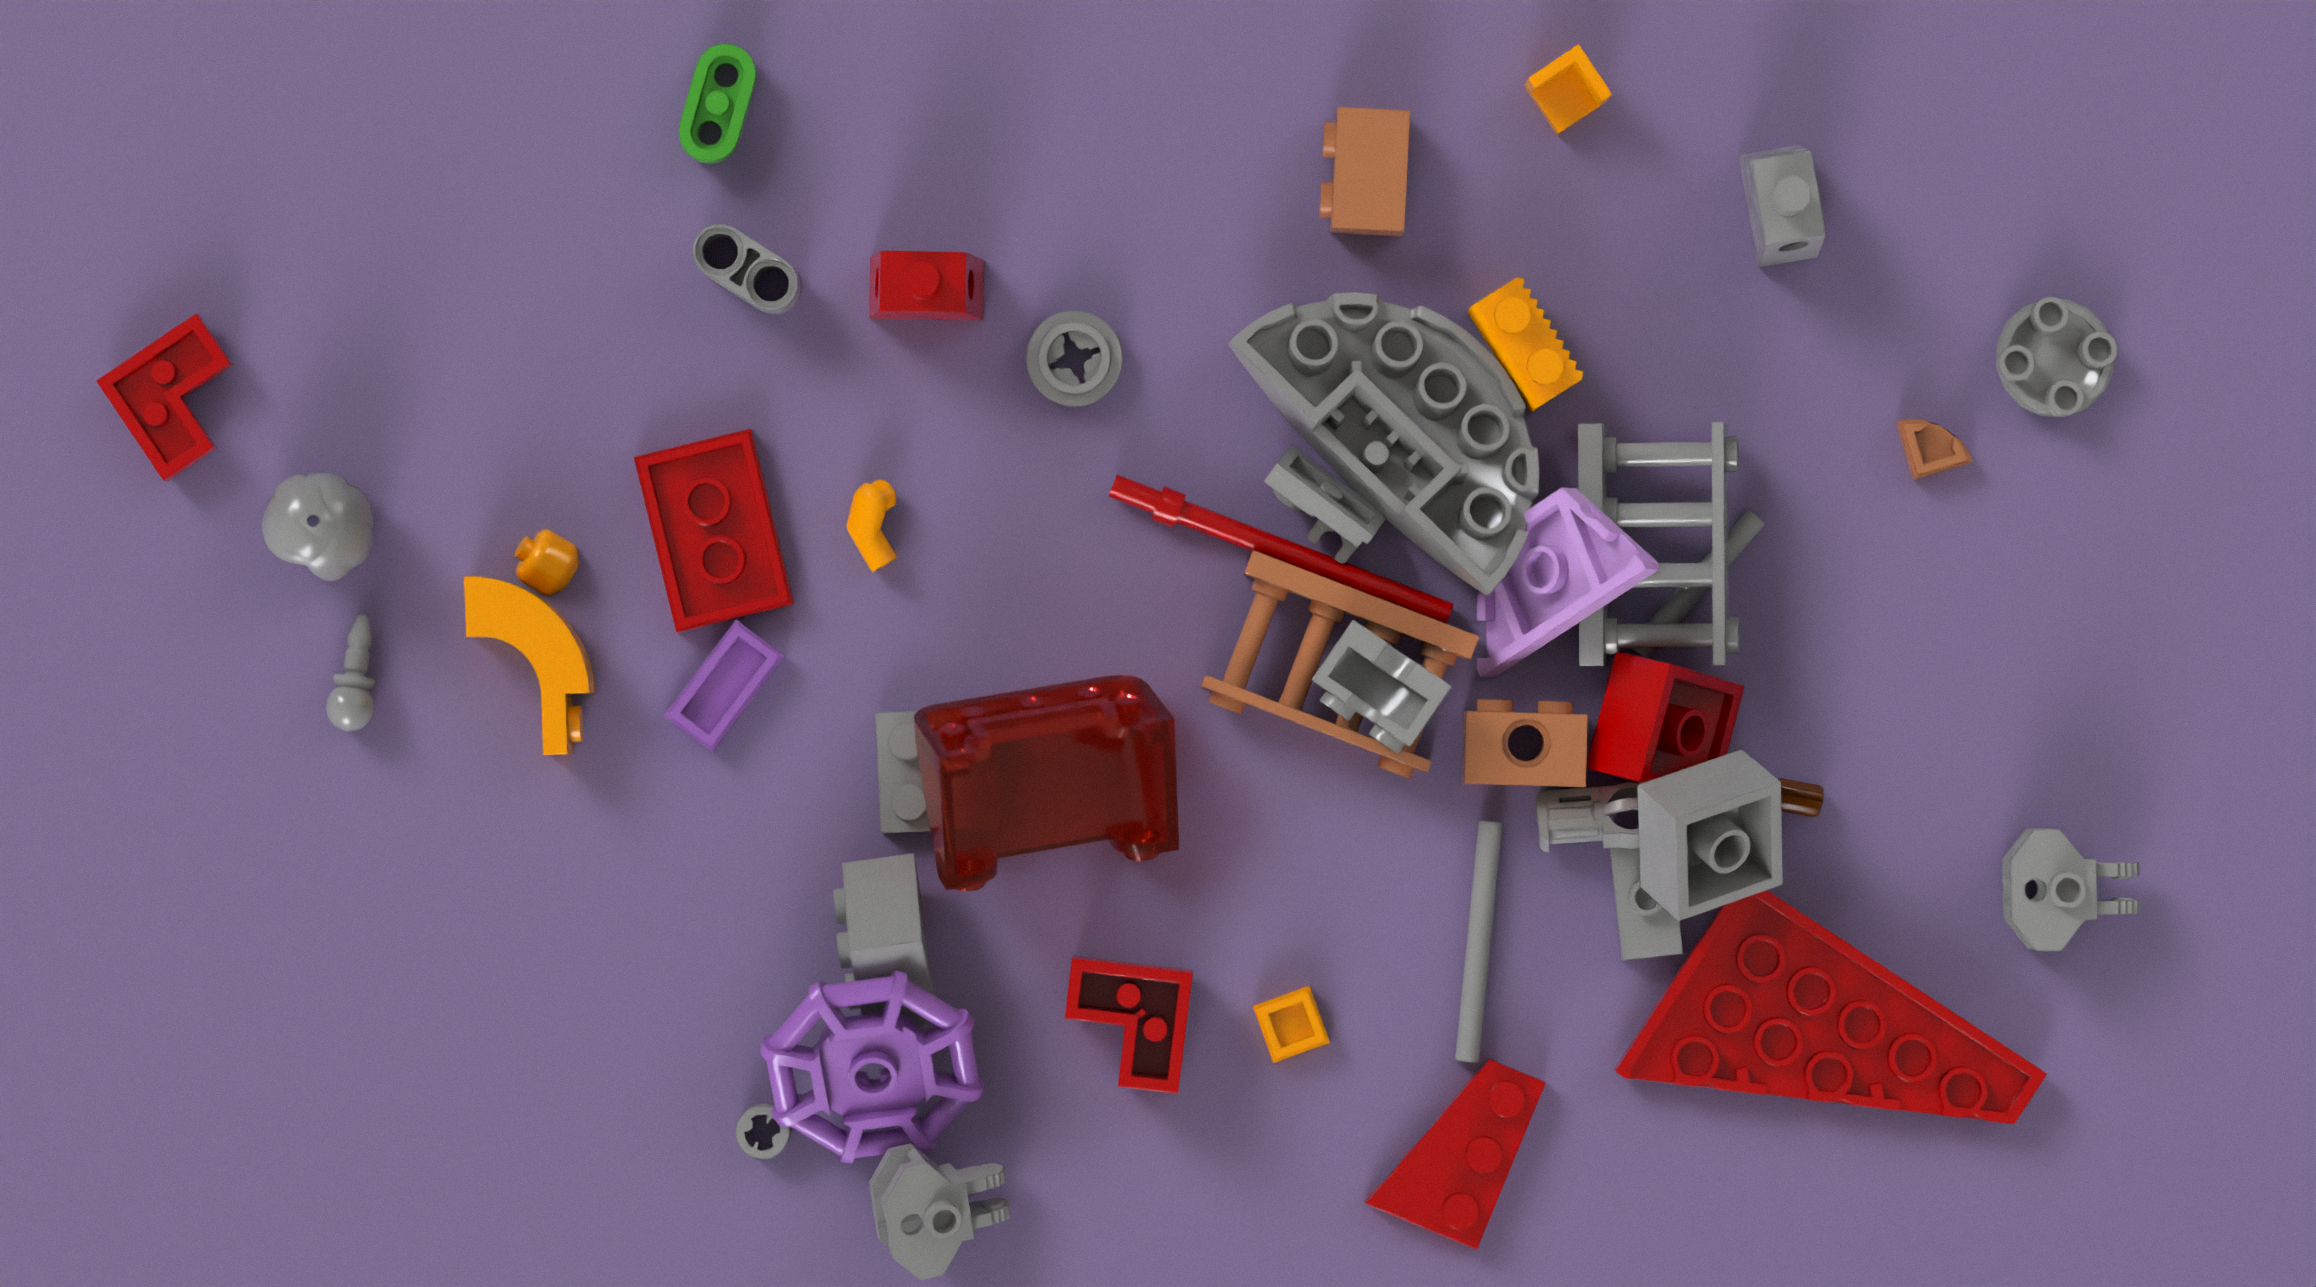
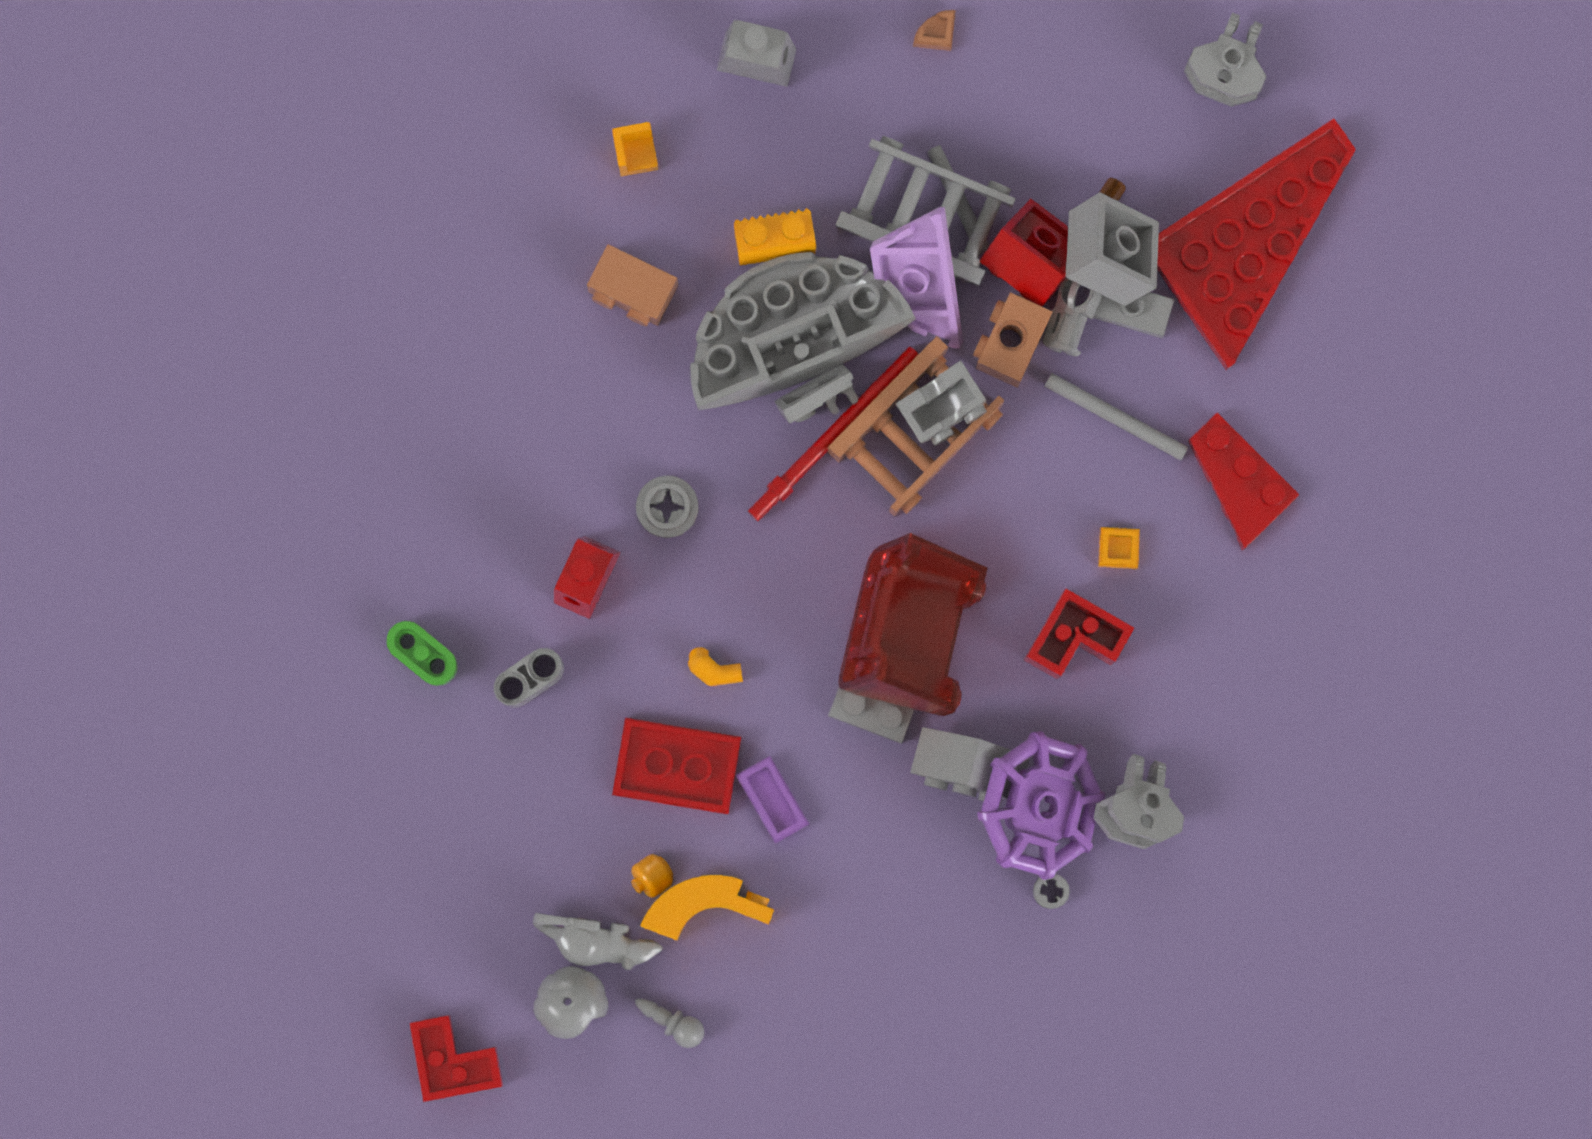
camera: 70 degrees left, 5 degrees down
(411, 515) = (589, 945): none -> light grey animal

